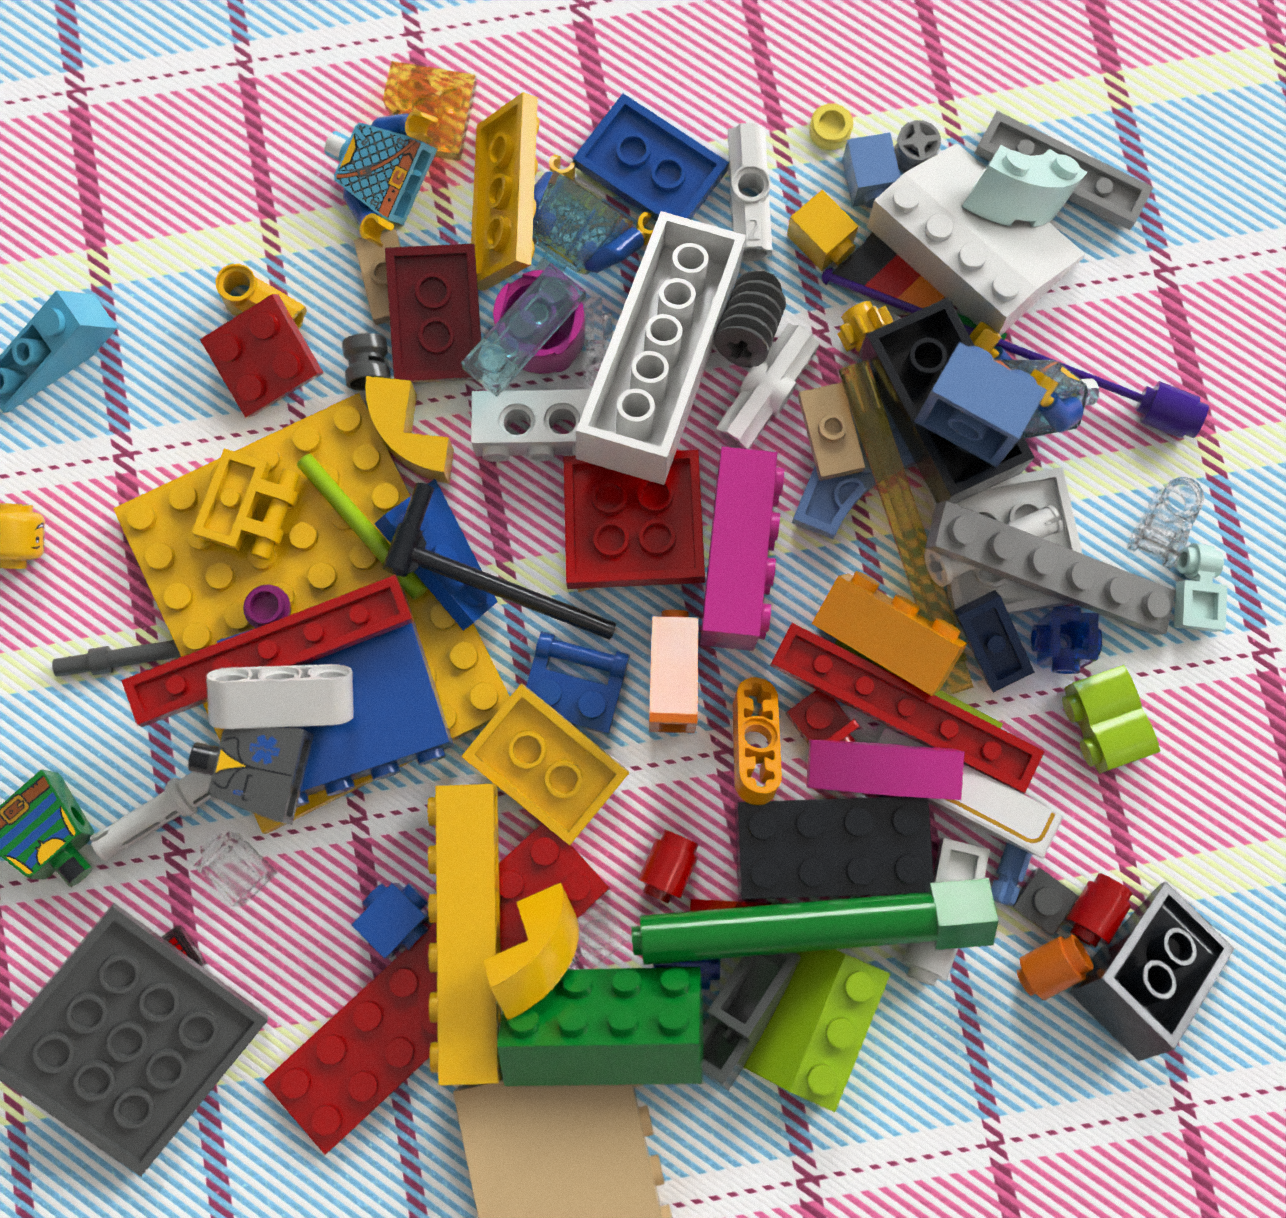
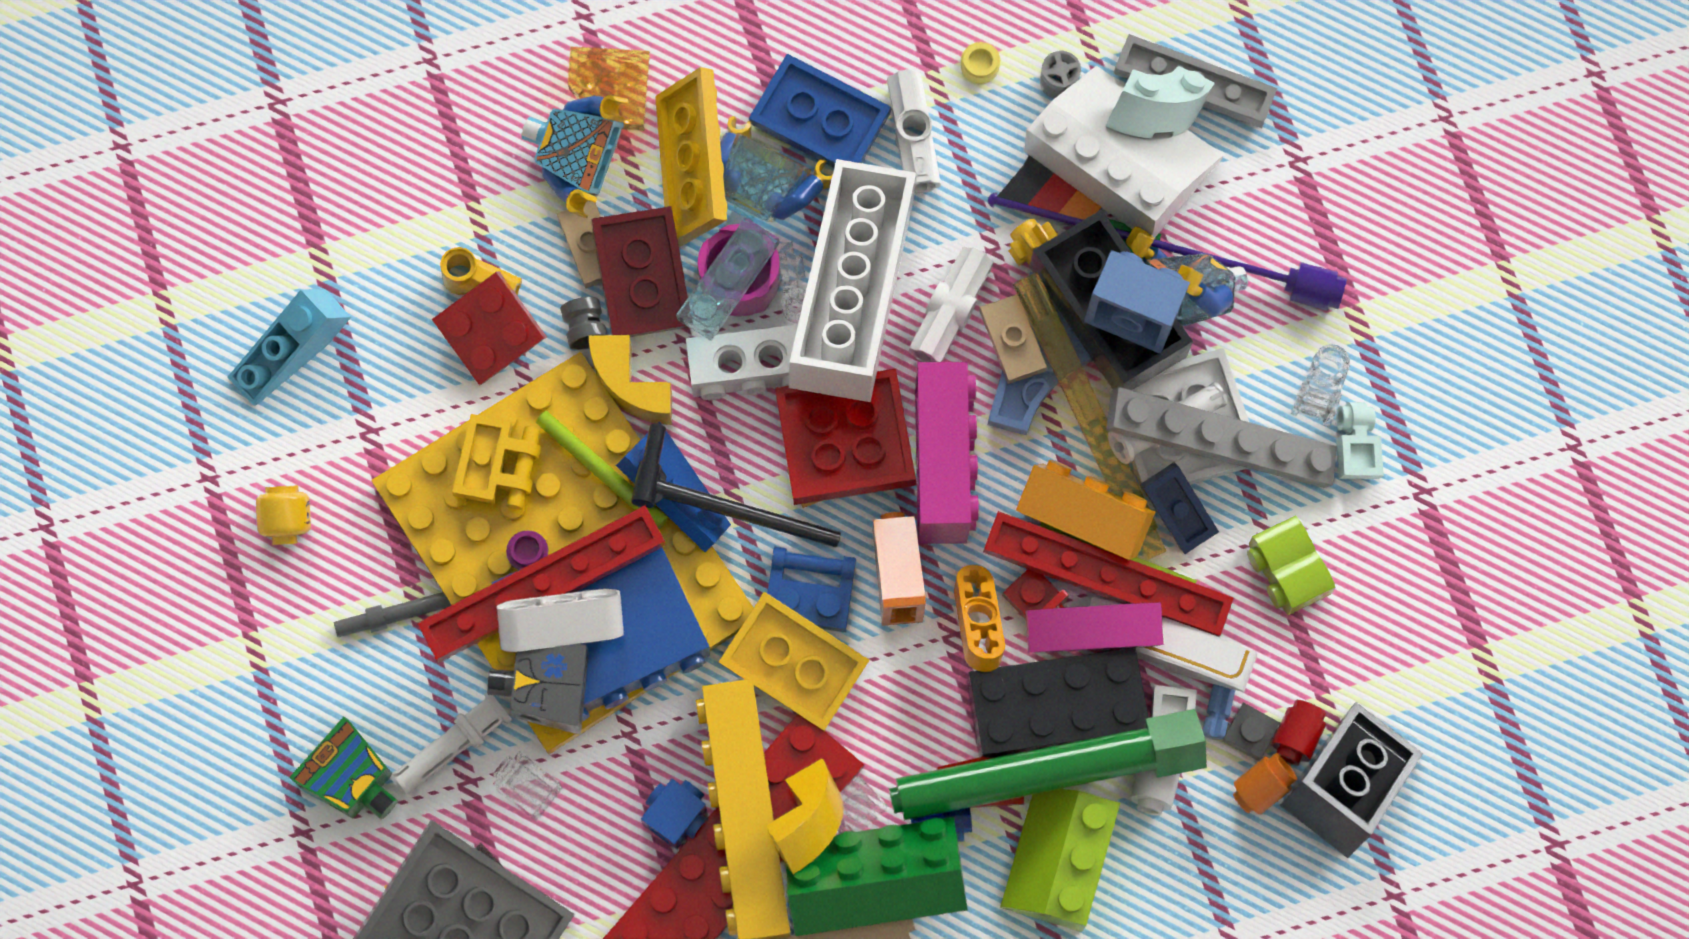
camera: 10 degrees left, 5 degrees down
(668, 866) = (914, 738): red brick -> none
(743, 1013) = (996, 856): dark grey slope -> none
(750, 319) = (929, 246): dark grey piece -> none
(823, 231) = (984, 160): yellow brick -> none
(869, 167) = (1020, 98): medium blue brick -> none
(1079, 632) = (1250, 488): clear blue brick -> none

